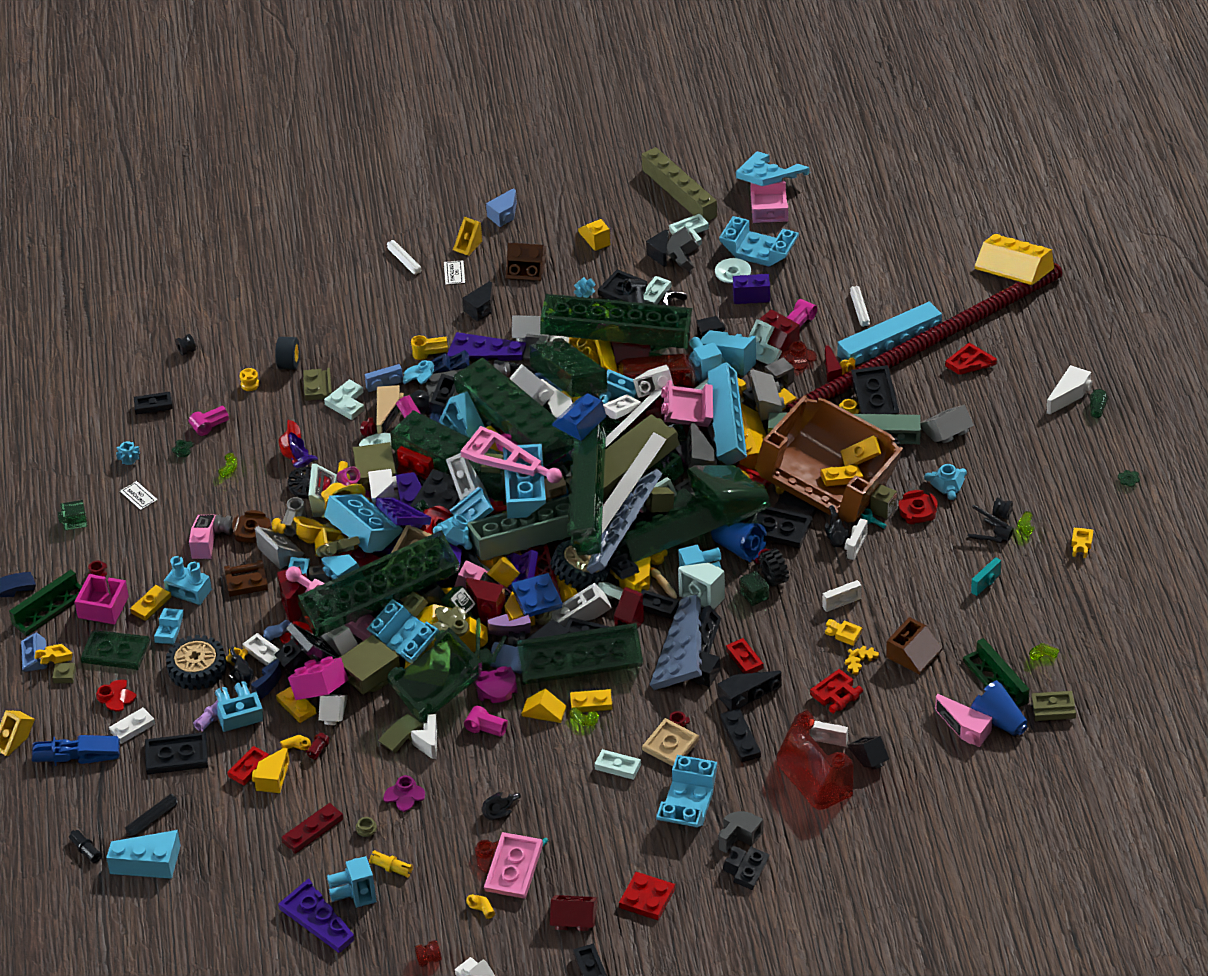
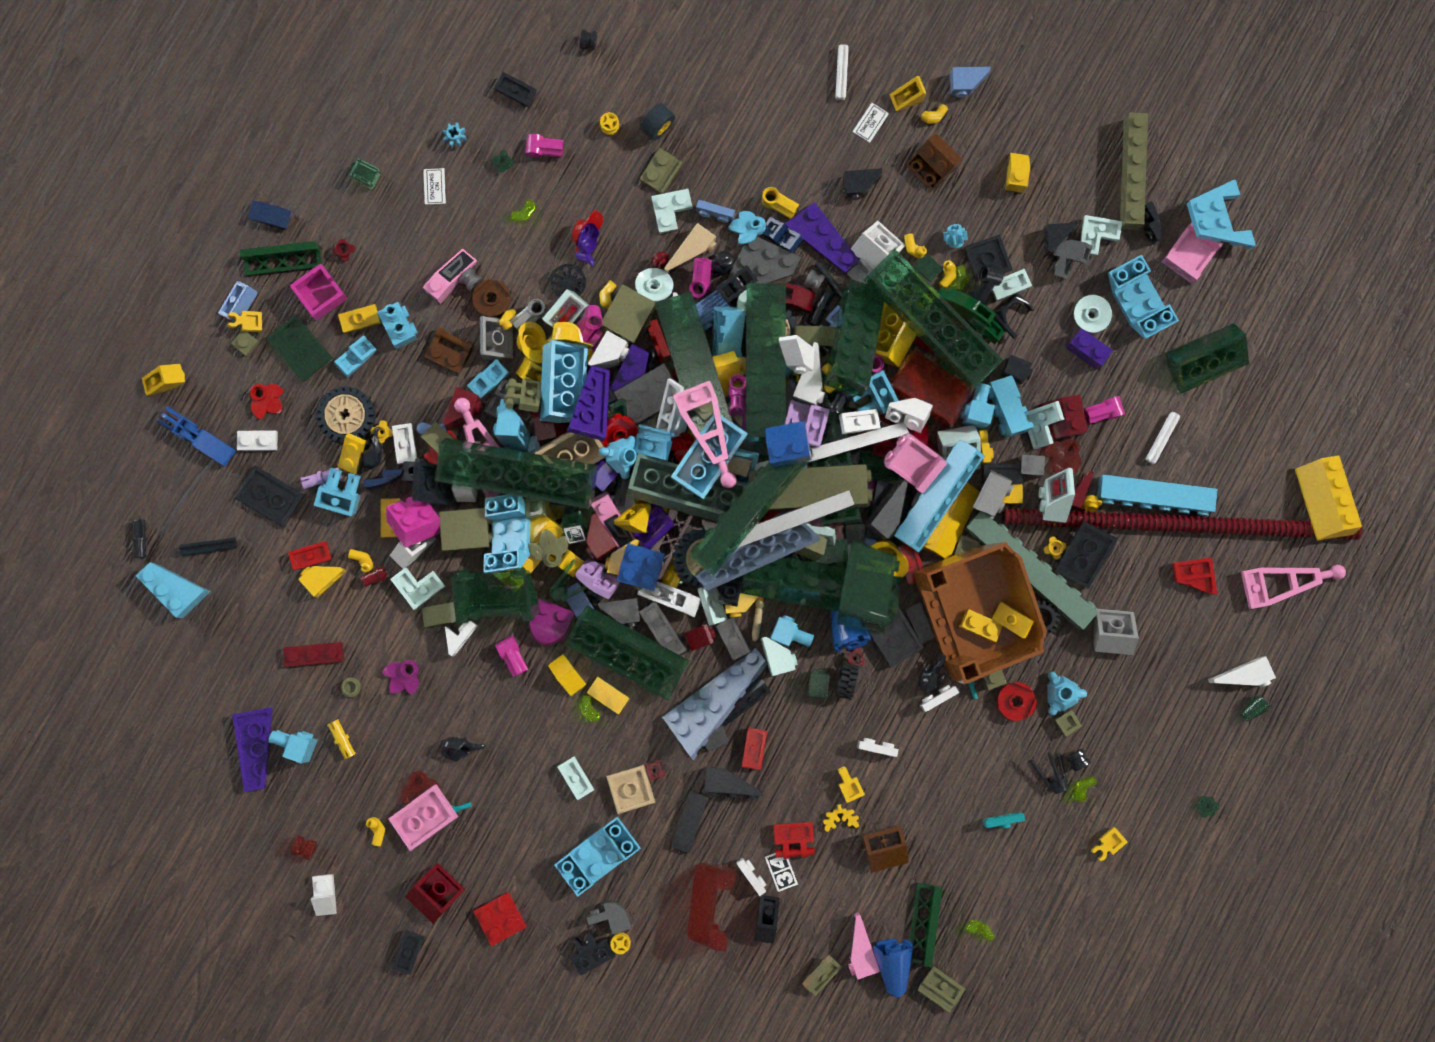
camera: 25 degrees right, 40 degrees up
(224, 674) = (351, 453): none -> yellow plate
(282, 624) = (435, 435): none -> olive sticker
(363, 733) = (417, 592): none -> light aqua plate
(499, 241) = (934, 116): none -> yellow arm
(725, 203) = (1153, 229): none -> black slope
(768, 839) = (621, 945): none -> yellow wheel
(817, 368) = (1057, 496): none -> light aqua slope
(843, 245) = (1208, 357): none -> clear green slope
(844, 718) = (781, 872): none -> white sticker
(950, 756) = (822, 975): none -> olive plate
(970, 494) = (1068, 723): none -> olive plate
(1028, 345) = (1256, 588): none -> bright pink plate

